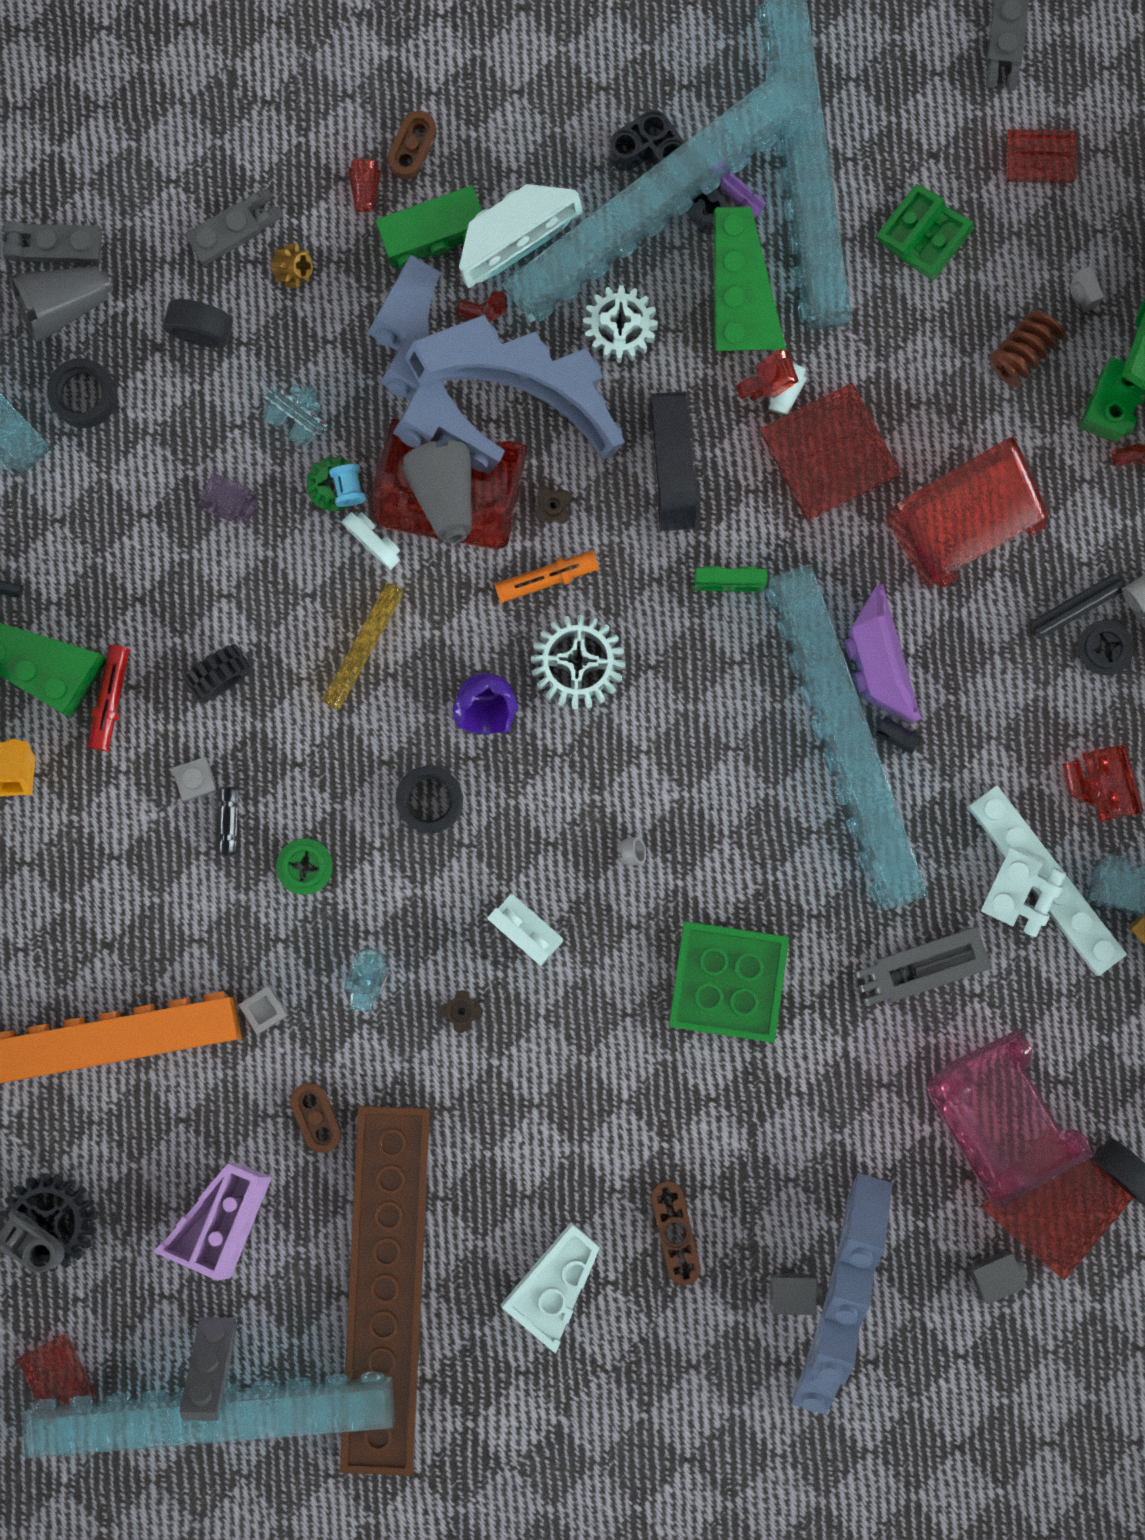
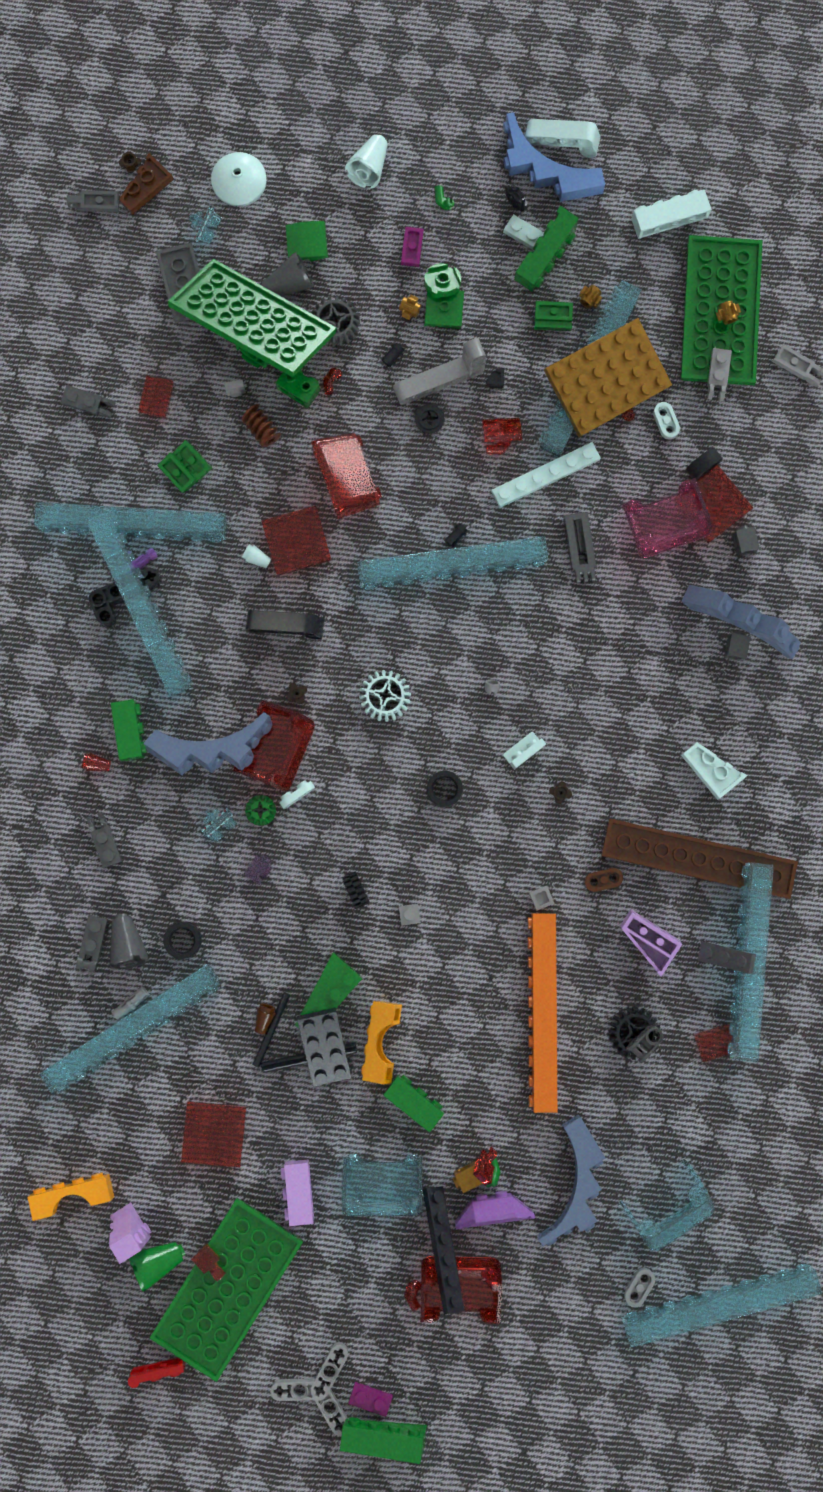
camera: 85 degrees left, 0 degrees up
(99, 738) = (335, 944): red pin -> none
(197, 323) = (157, 867): black tyre -> none
(227, 821) = (435, 900): black axle -> none
(291, 265) = (134, 811): pearl gold gear -> none
(294, 853) = (476, 858): green gear -> none
(347, 485) = (265, 801): medium azure bush -> none
(363, 646) = (354, 810): clear yellow axle -> none
(366, 979) = (536, 838): clear light blue hips -> none
(411, 146) = (78, 733): reddish brown plate -> none
(442, 487) = (279, 748): dark grey cone -> none
(485, 705) = (399, 749): dark purple hair -> none
(491, 308) = (181, 710): clear red arm -> none
(515, 229) = (140, 684): light aqua wedge -> none
(524, 363) = (217, 692): sand blue arch -> none
(586, 562) = (331, 681): orange pin -> none
(633, 323) = (205, 630): light aqua gear -> none
(690, 1256) = (709, 706): reddish brown beam -> none
(728, 982) = (570, 649): green plate -> none
(730, 580) = (357, 599): green plate -> none
(742, 290) = (203, 569): green wedge -> none
(774, 377) = (250, 561): clear red plate -> none
(880, 660) = (413, 536): medium lavender wedge -> none
(1013, 885) = (547, 492): light aqua plate -> none
(1076, 606) = (404, 429): black axle -> none

